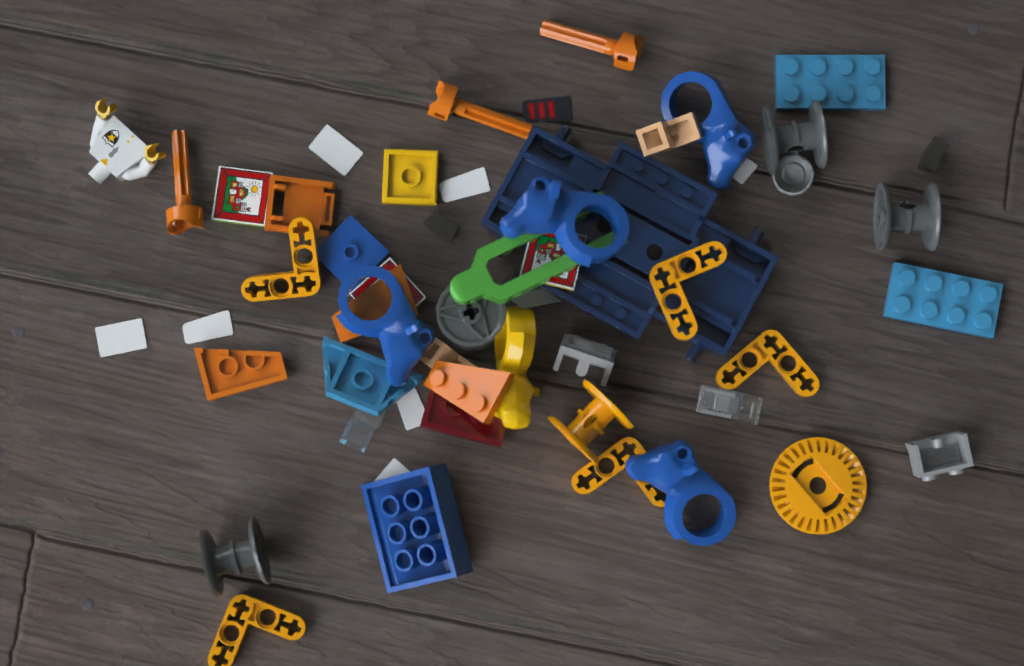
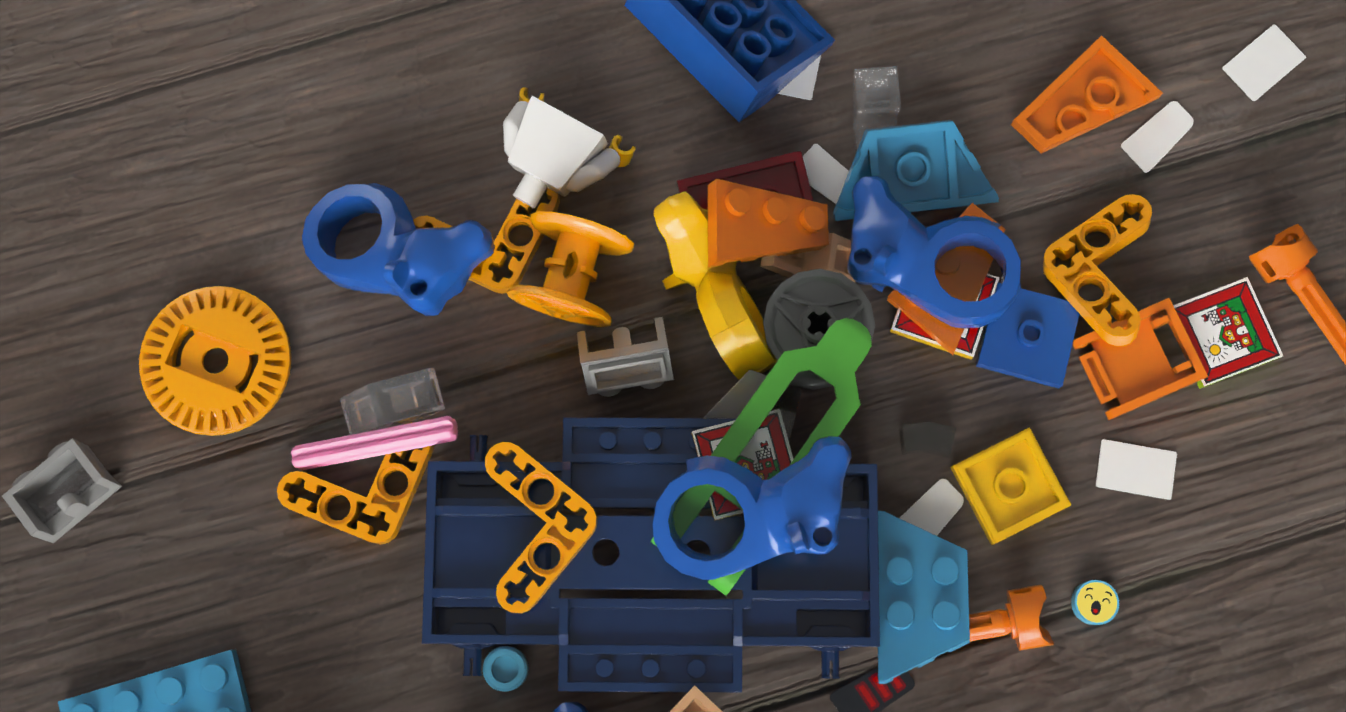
camera: 150 degrees right, 5 degrees down
(401, 91) = (1095, 602): none -> light yellow tile
(495, 143) = (919, 597): none -> dark azure wing
(562, 500) = (556, 150): none -> white torso
(740, 224) = (505, 668): none -> medium azure tile
(750, 386) = (375, 443): none -> bright pink axle

